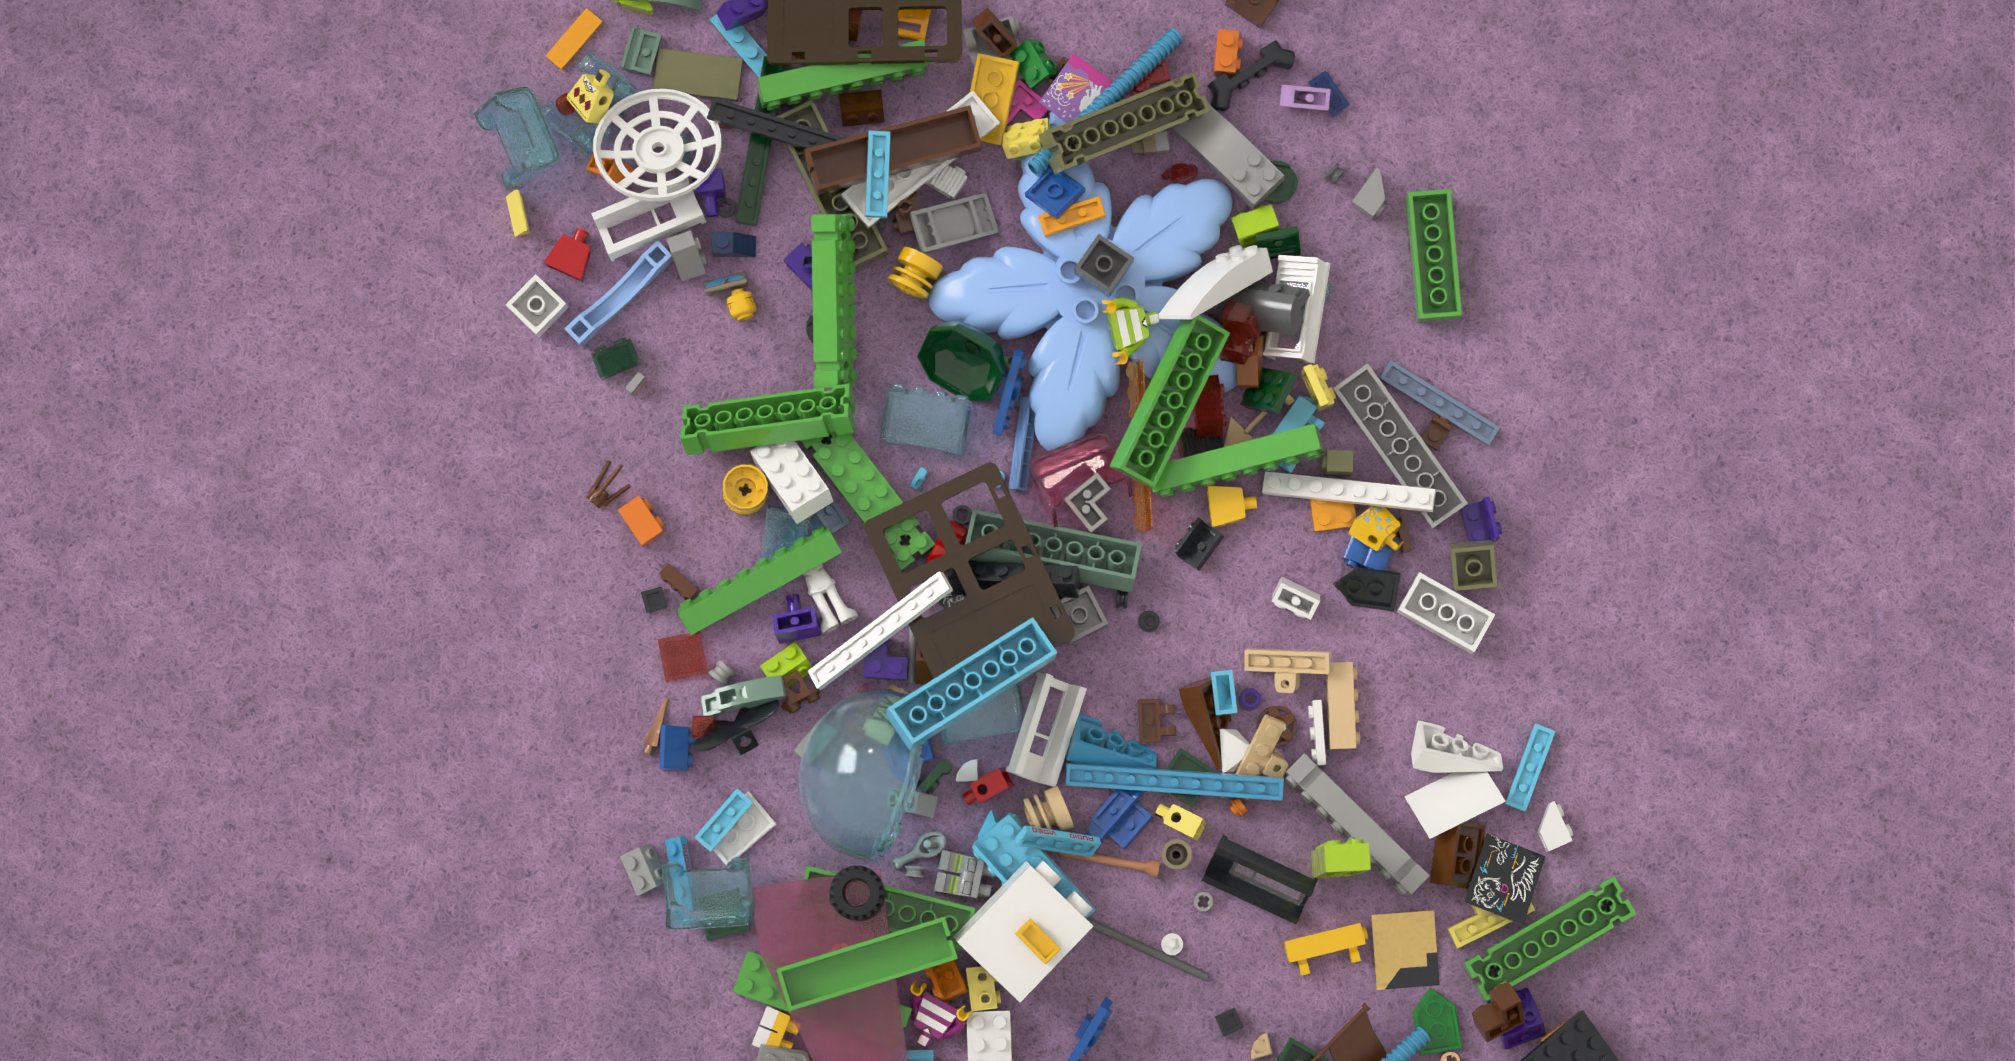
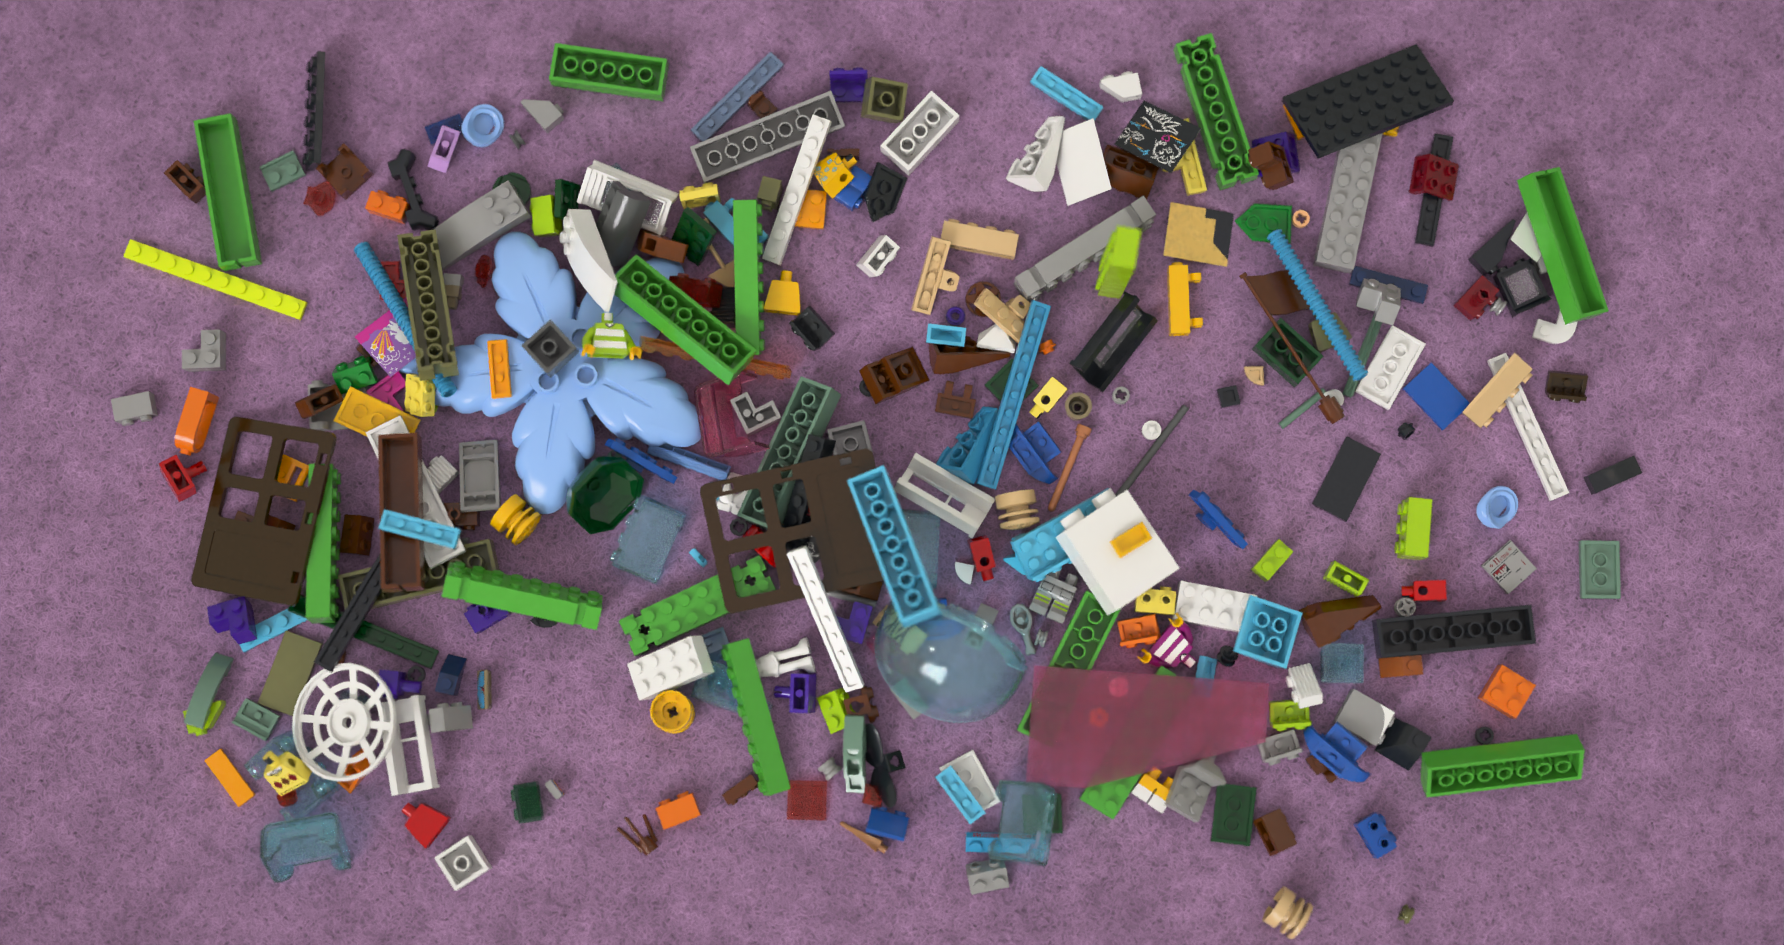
camera: 75 degrees left, 0 degrees up
(517, 213) = (375, 862): light yellow slope -> none
(643, 272) = (471, 785): light blue arch -> none
(654, 599) = (750, 814): black plate -> none
(741, 305) = (506, 679): yellow head -> none
(768, 419) = (615, 677): bright green brick -> none
(837, 893) = (1065, 677): black tyre -> none
(866, 964) = (1117, 694): bright green piece -> none
(931, 782) = (967, 604): dark green plate -> none
(986, 502) = (732, 501): none -> white piece
(1055, 193) = (475, 378): blue tile -> none
(1057, 841) = (1044, 506): medium azure plate -> none
(1122, 599) = (844, 405): black bush -> none
(1167, 646) = (893, 375): none -> reddish brown slope
(1244, 331) = (629, 243): clear red brick -> none
(1317, 733) = (997, 265): white plate -> none
(1342, 128) = (480, 122): none -> light blue piece

